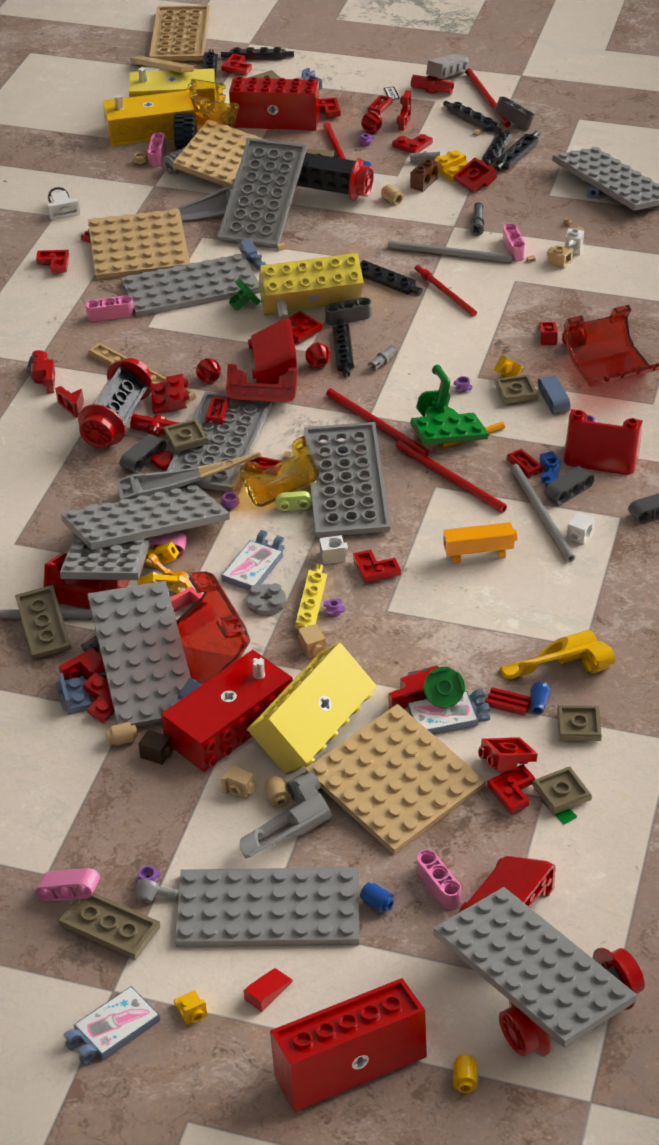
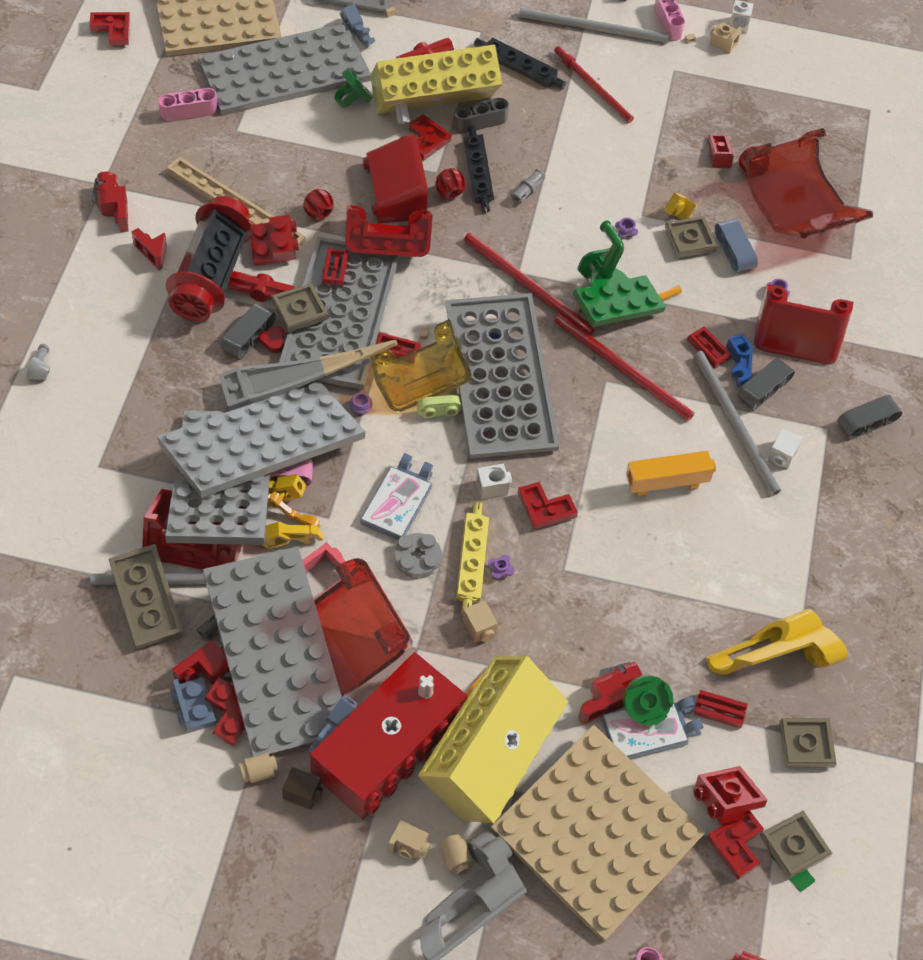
camera: 10 degrees left, 15 degrees up
(539, 696) = (758, 702): blue cone -> none

